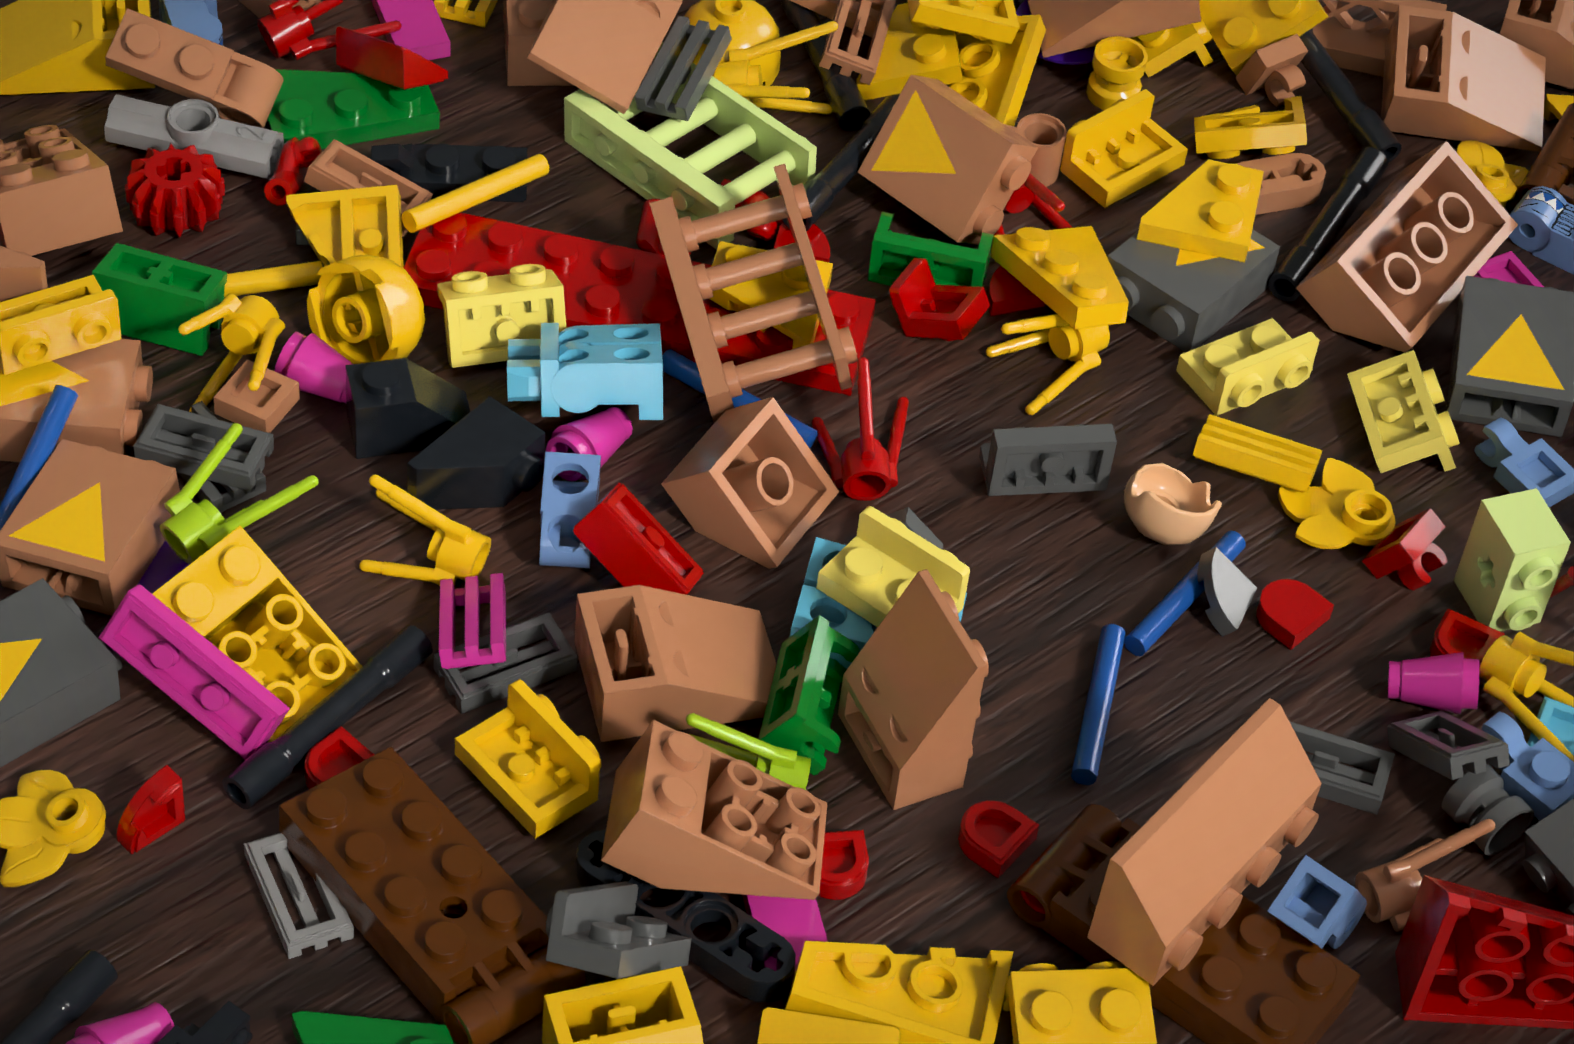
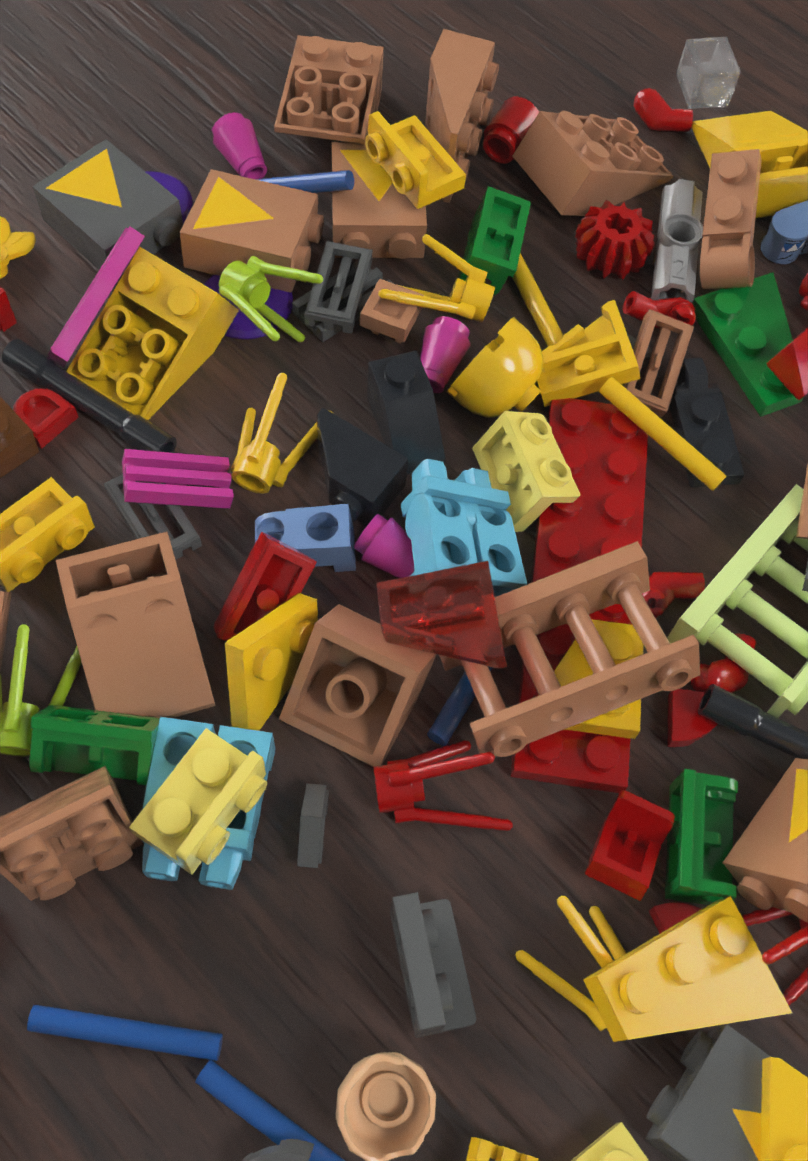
camera: 85 degrees right, 15 degrees up
(712, 364) = (445, 614): none -> clear red wing
(726, 542) = (266, 659): none -> yellow wing

